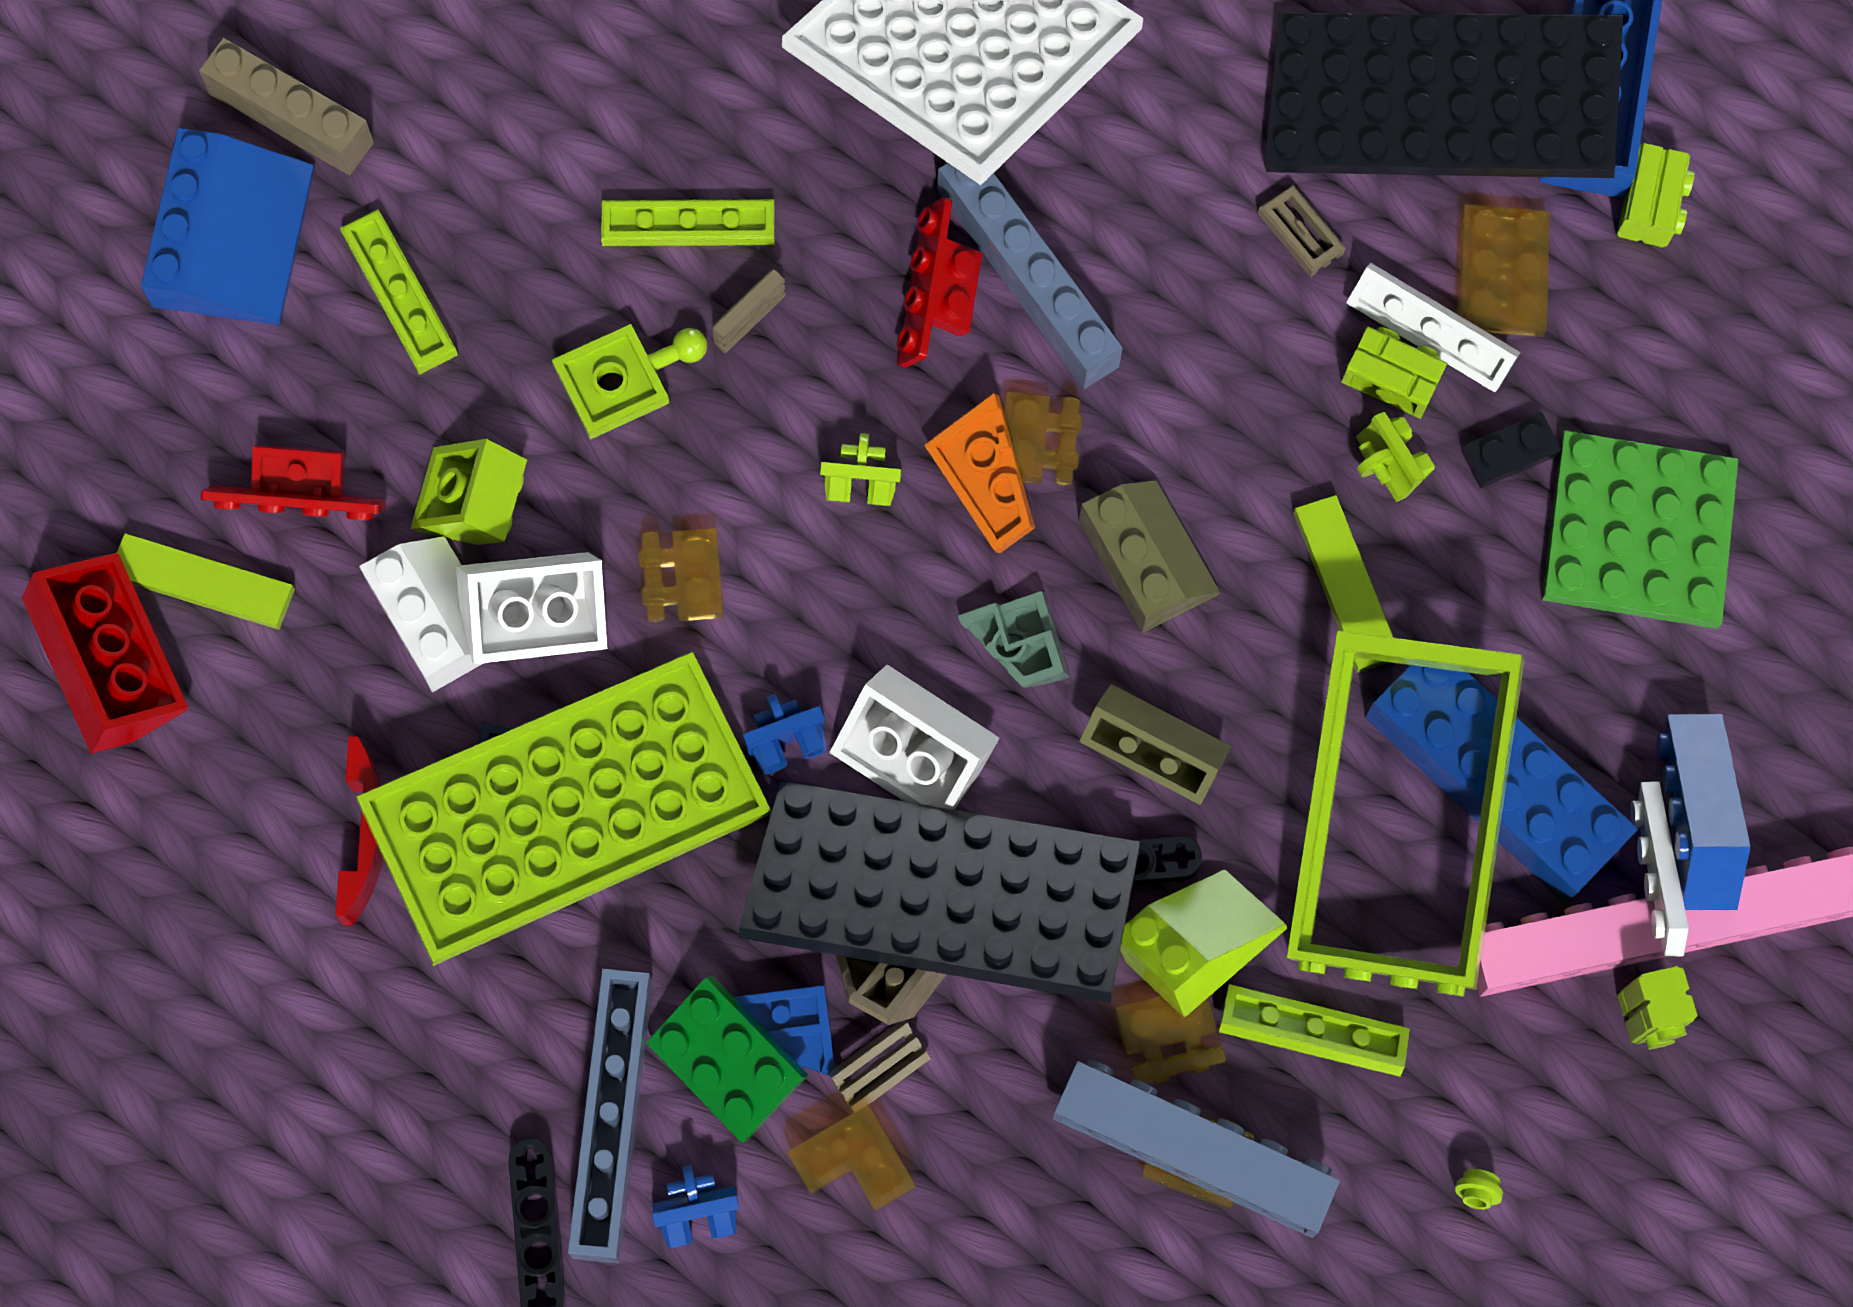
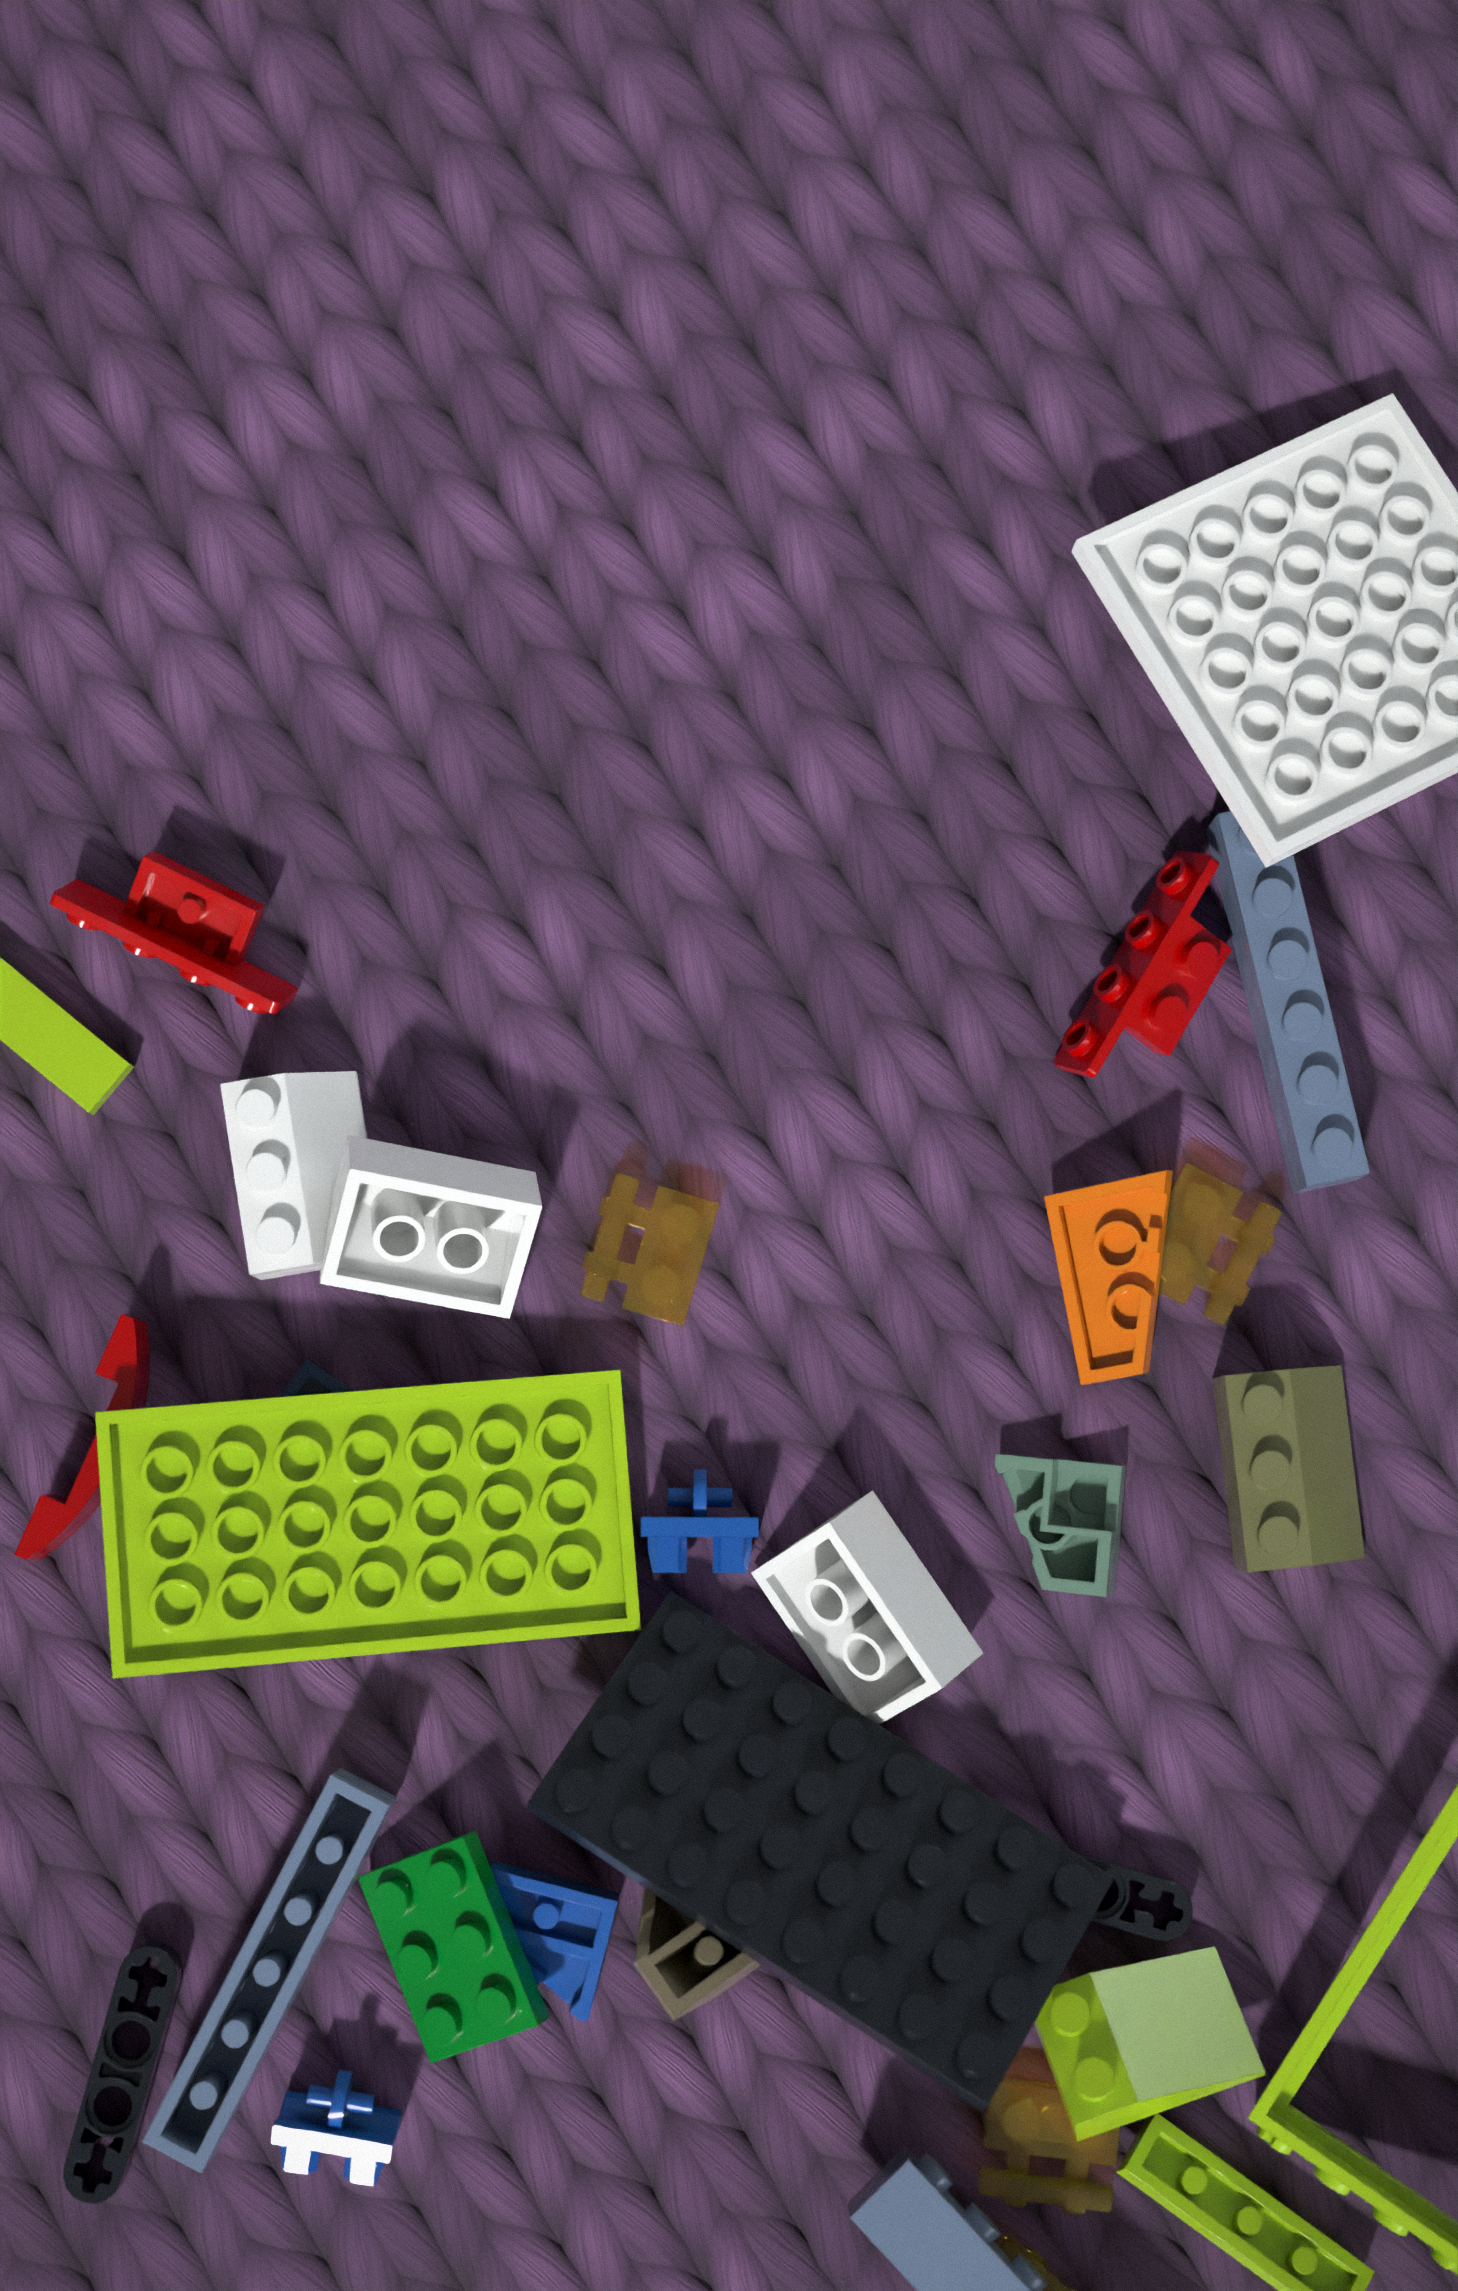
camera: 25 degrees right, 10 degrees up
(226, 229) = (225, 524): blue slope -> none
(286, 106) = (367, 379): dark tan brick -> none
(398, 291) = (422, 699): lime tile -> none
(470, 492) = (409, 1027): lime slope -> none
(624, 355) = (689, 909): lime plate -> none
(687, 222) = (848, 749): lime tile -> none
(748, 311) = (880, 912): dark tan tile -> none
(857, 1147) = (580, 2132): clear yellow plate -> none
(881, 480) = (966, 1218): lime hips -> none
(888, 1079) = (650, 2043): dark tan tile -> none
(1155, 744) = (1190, 1748): olive brick -> none

